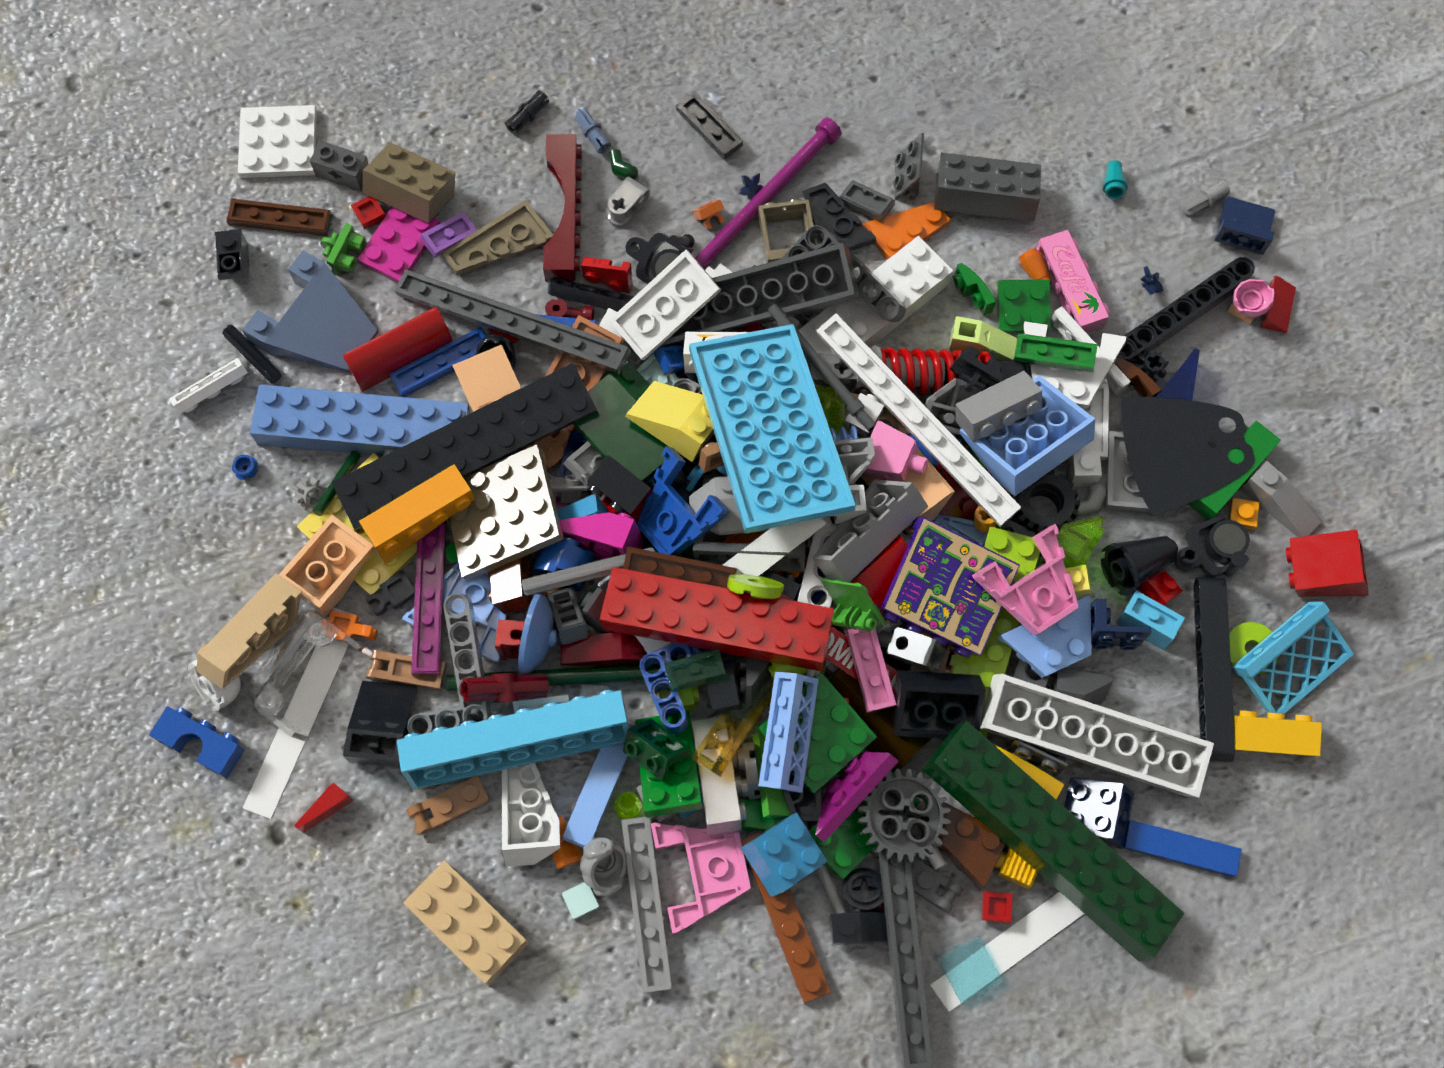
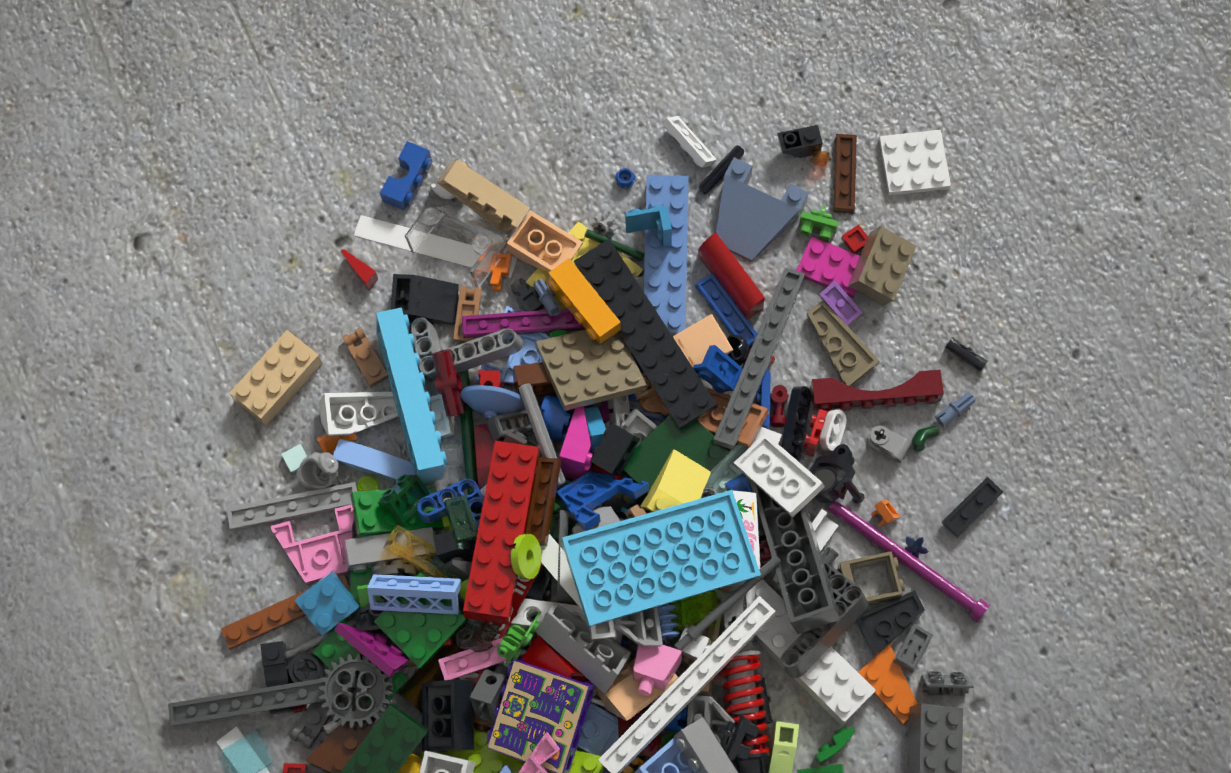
camera: 90 degrees right, 0 degrees up
(256, 239) = (821, 158): none -> clear orange plate
(323, 407) = (651, 218): none -> dark azure bracket
(339, 165) = (895, 209): dark grey brick -> none
(400, 564) = (547, 298): none -> sand blue axle
(527, 360) = (718, 370): none -> blue bracket
(600, 252) = (833, 430): none -> white plate
(844, 657) = (476, 636): none -> clear smoke plate

